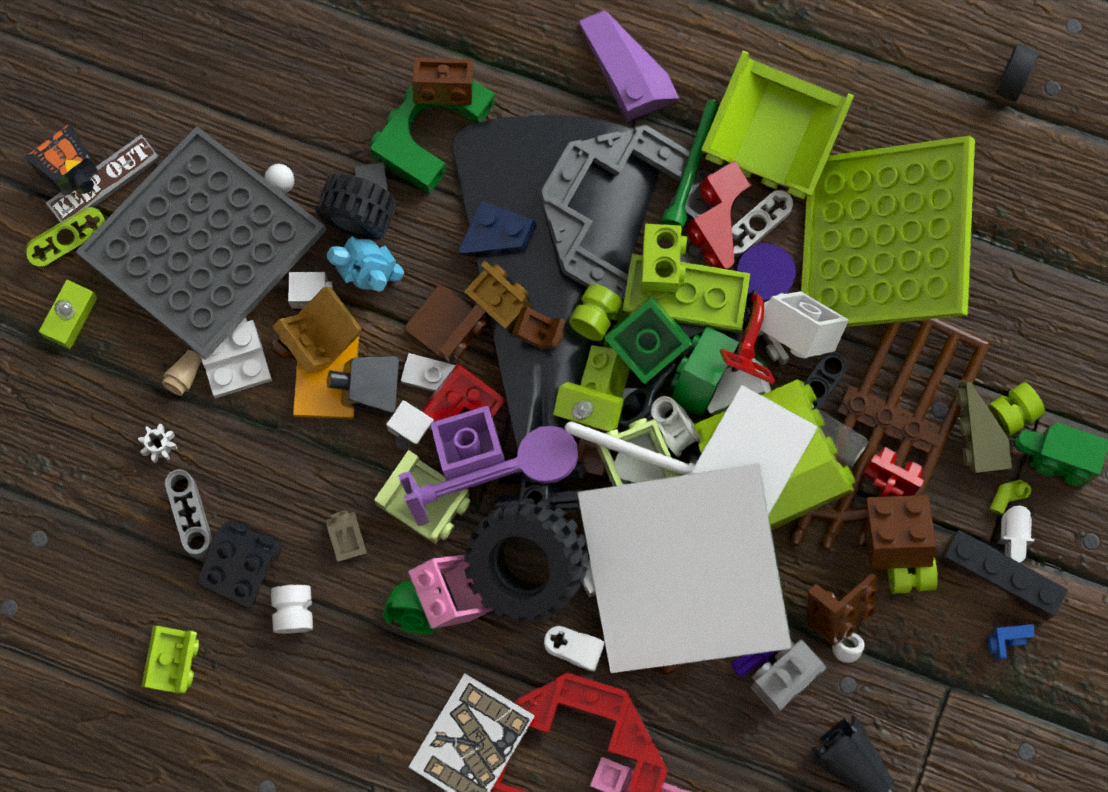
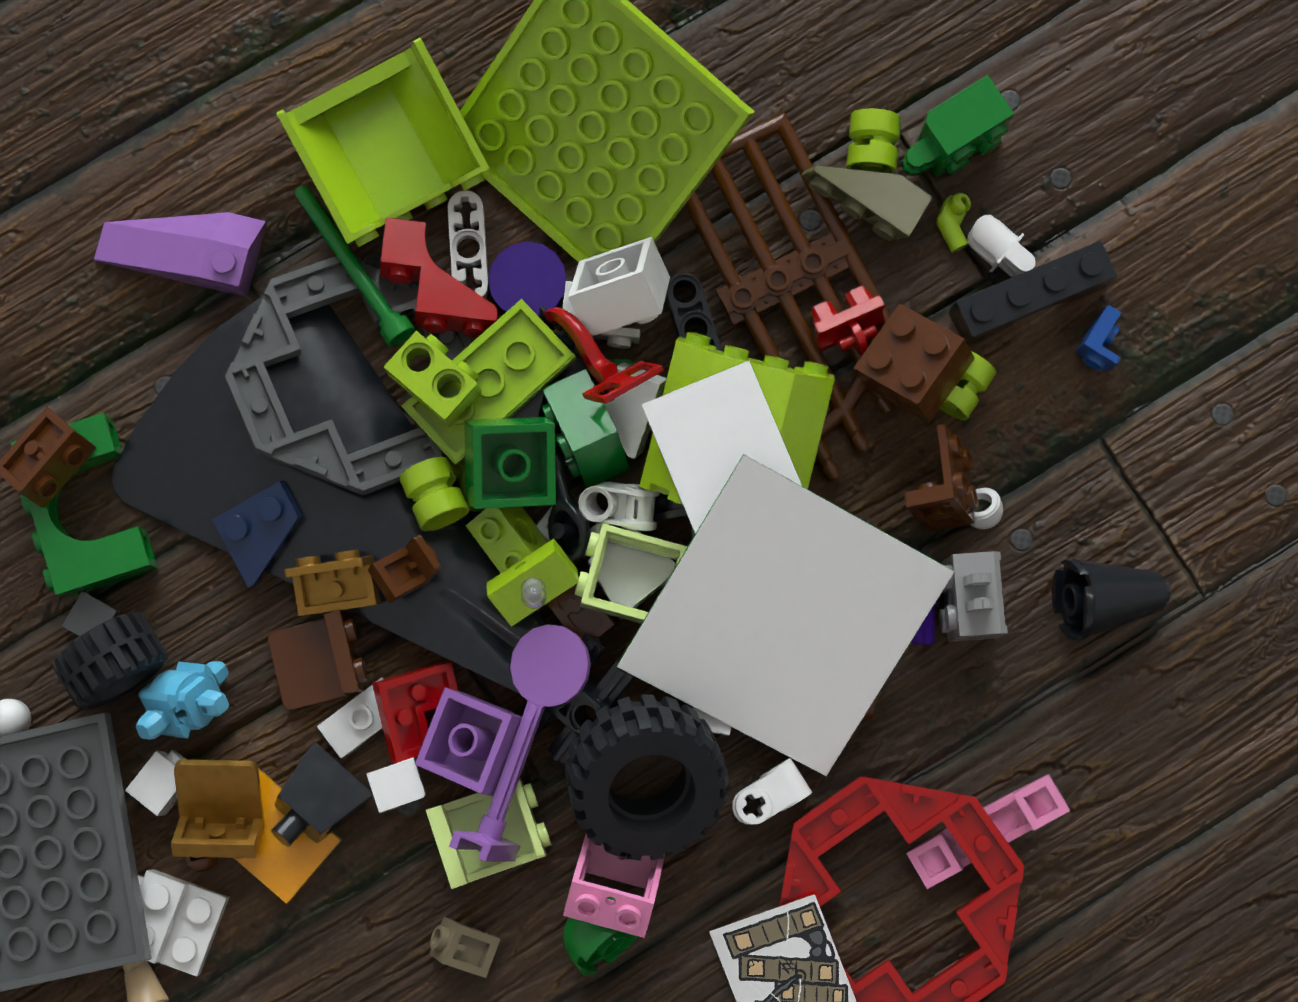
camera: 55 degrees left, 5 degrees up
(629, 449) = (616, 575): white piece -> none
(847, 441) = (773, 340): clear tile -> none

